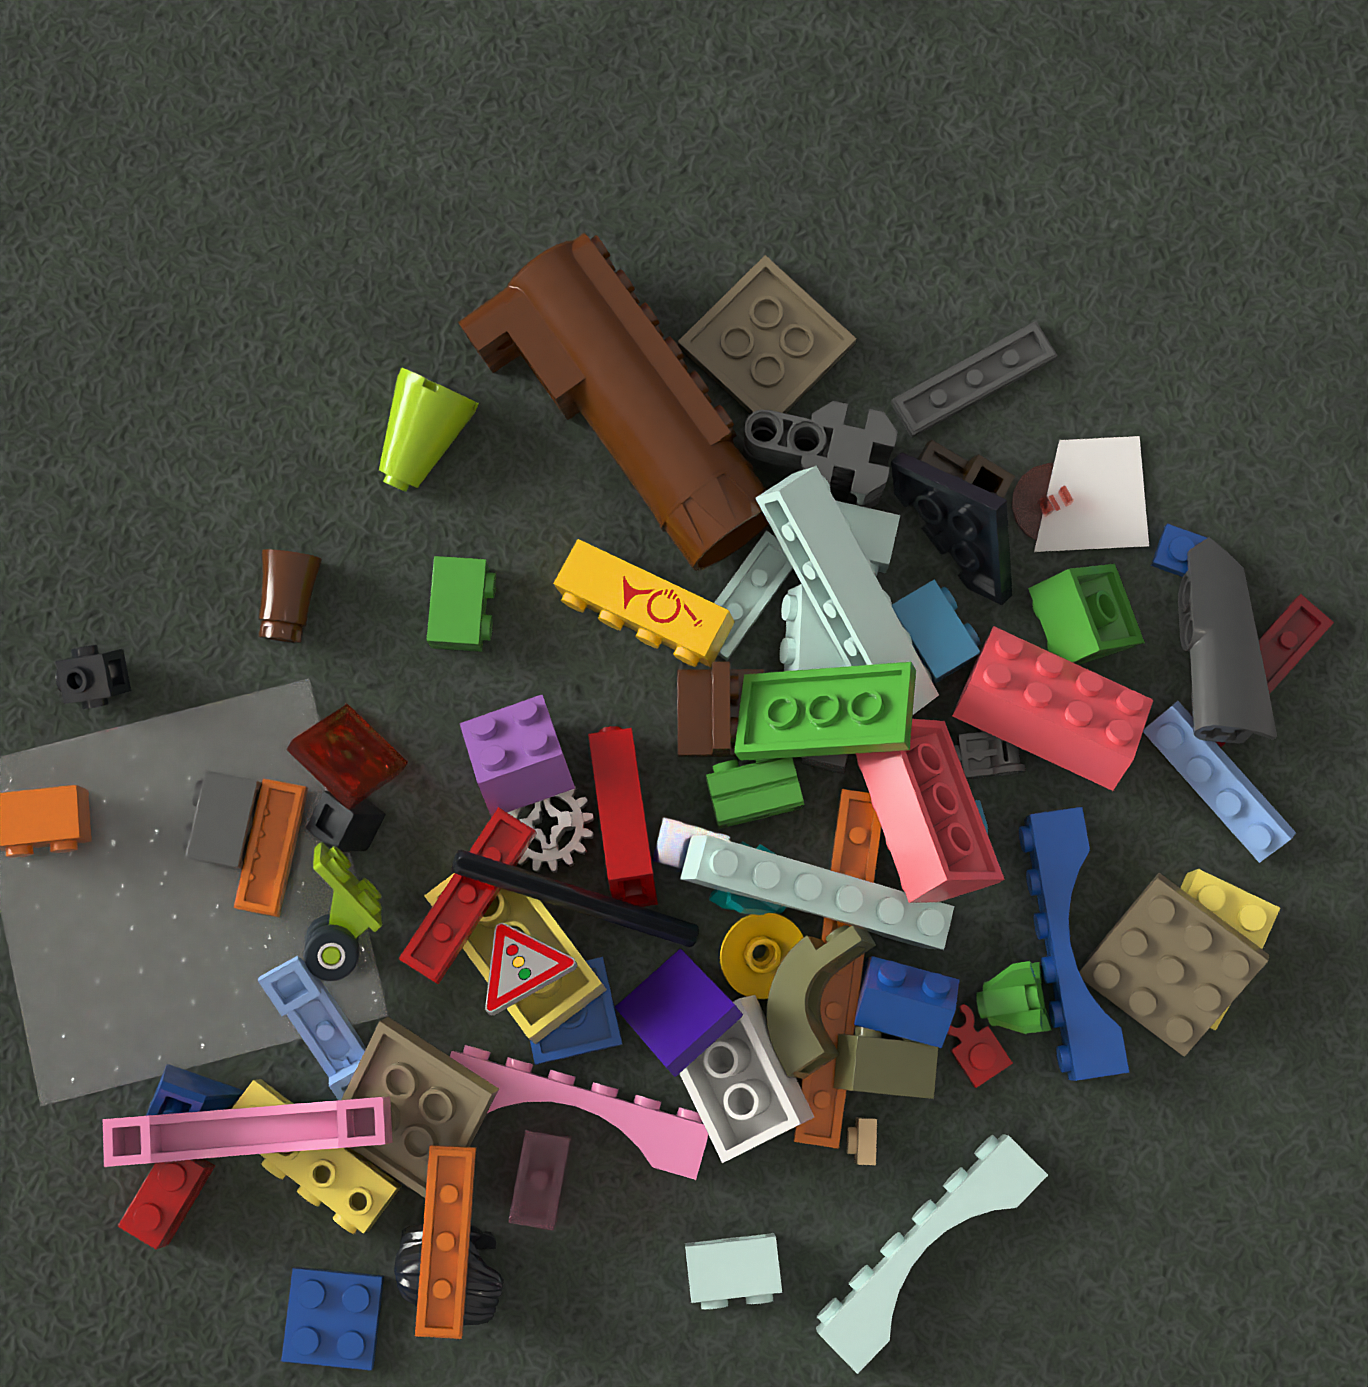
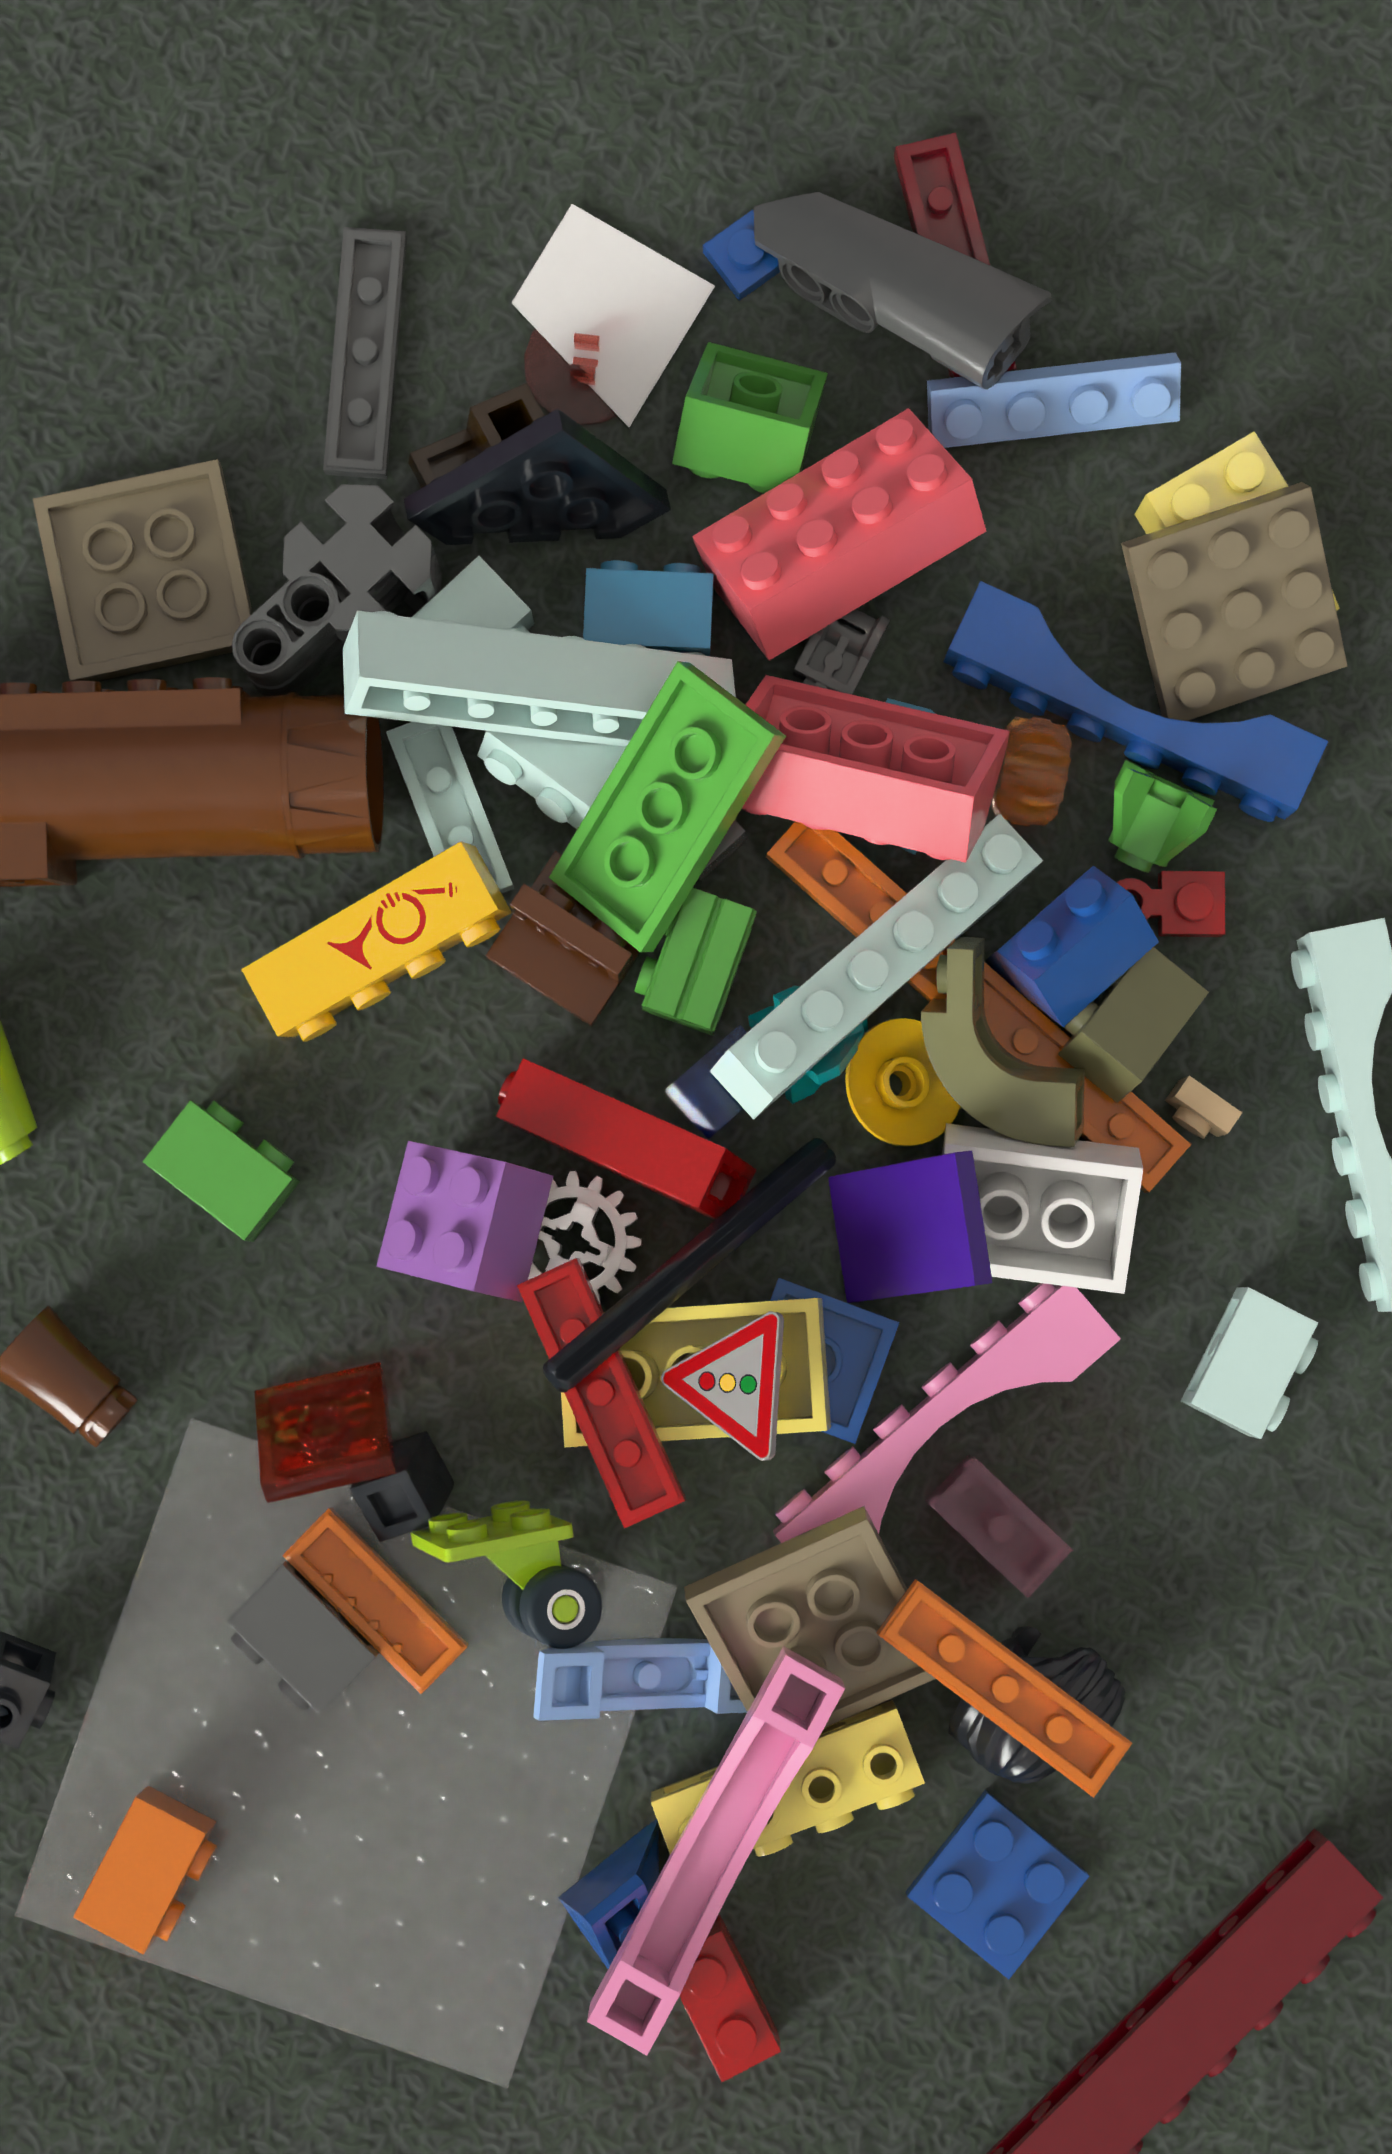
camera: 60 degrees left, 5 degrees up
(992, 909) = (1032, 771): none -> clear orange gear

